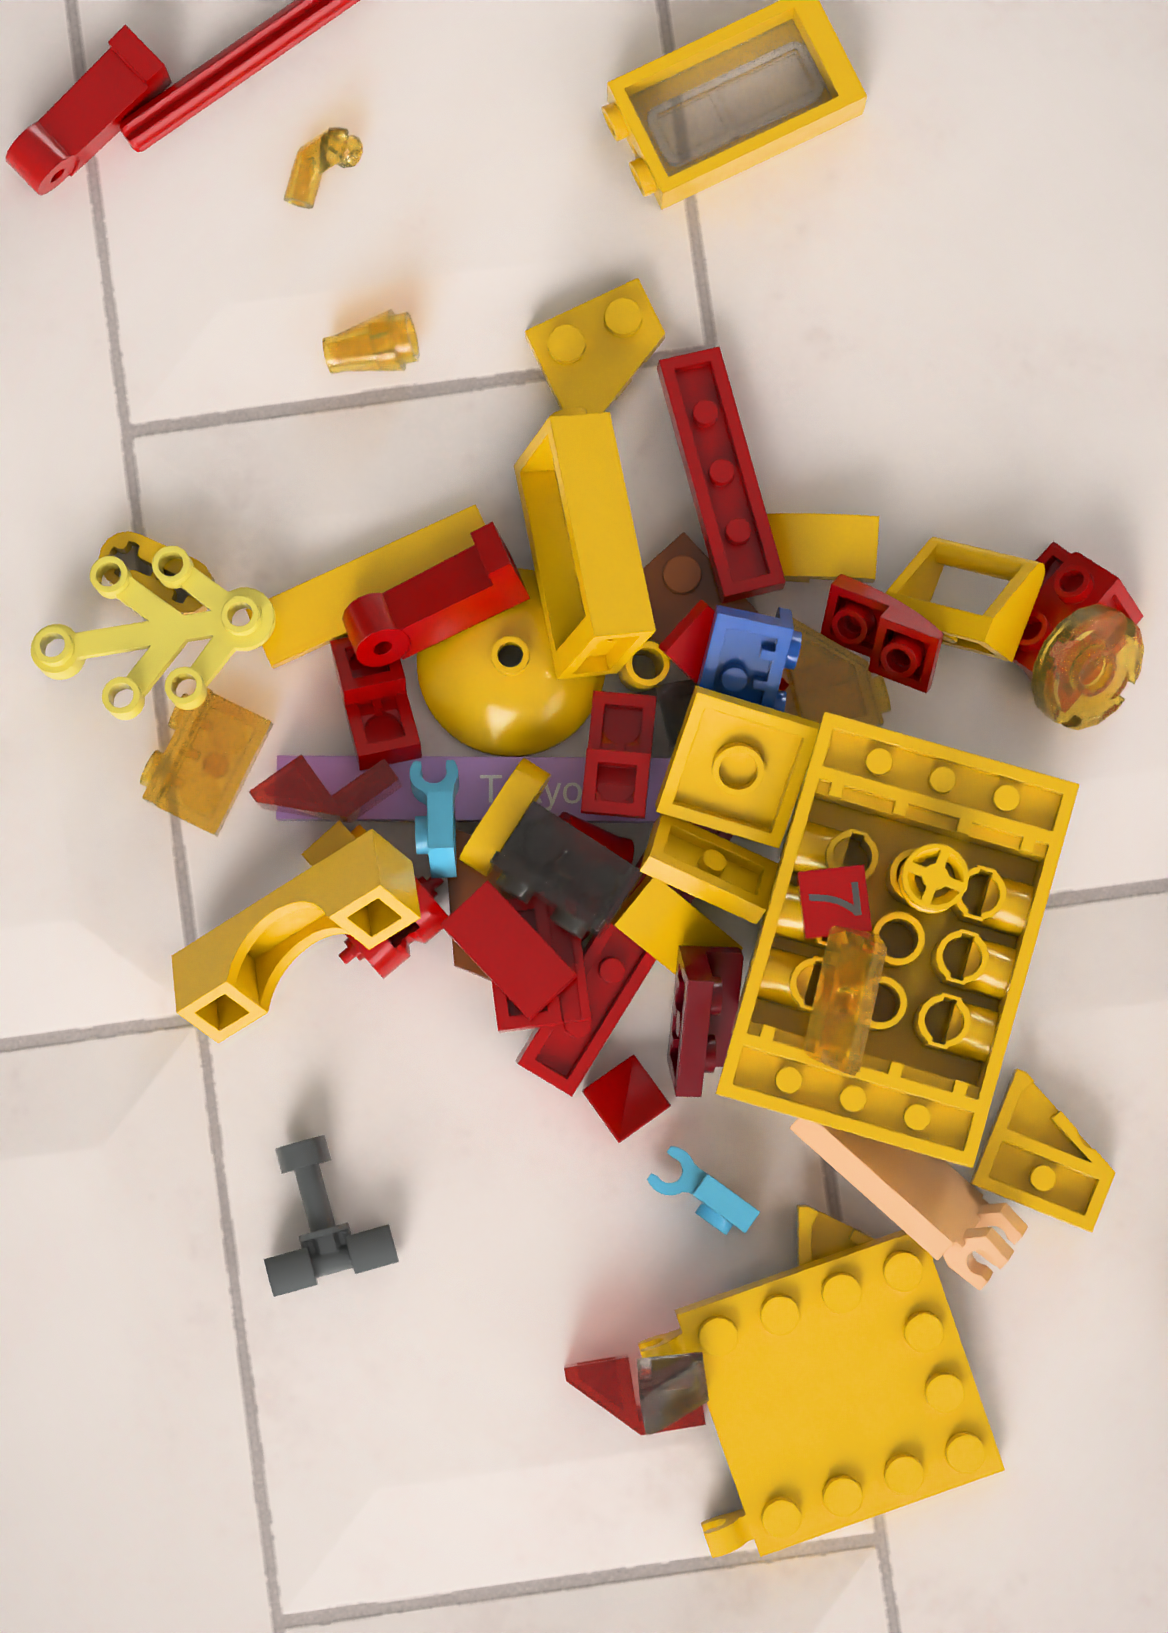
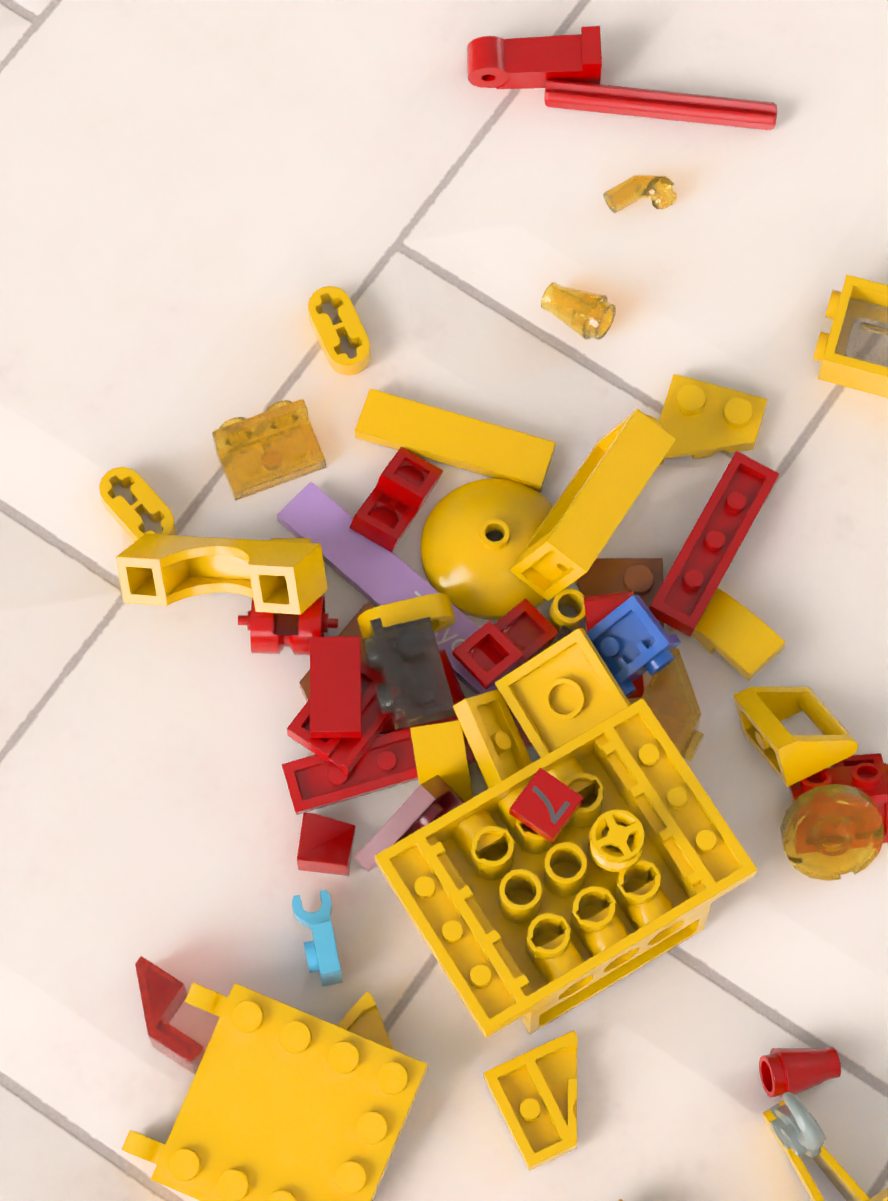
camera: 40 degrees right, 15 degrees down
(135, 917) = (145, 502): none -> yellow beam
(162, 634) = (307, 357): light yellow plant -> none
(300, 792) = (303, 503): clear red slope -> none
(328, 1246) = (76, 772): dark grey bar -> none
(436, 602) = (481, 470): red leg -> none
(437, 831) = (364, 590): medium azure plate -> none
(670, 1388) = (189, 1017): clear smoke slope -> none
(845, 998) = (500, 861): clear yellow slope -> none
(894, 636) = (726, 703): red slope -> none
(922, 1198) = (443, 1043): light nougat tile -> none

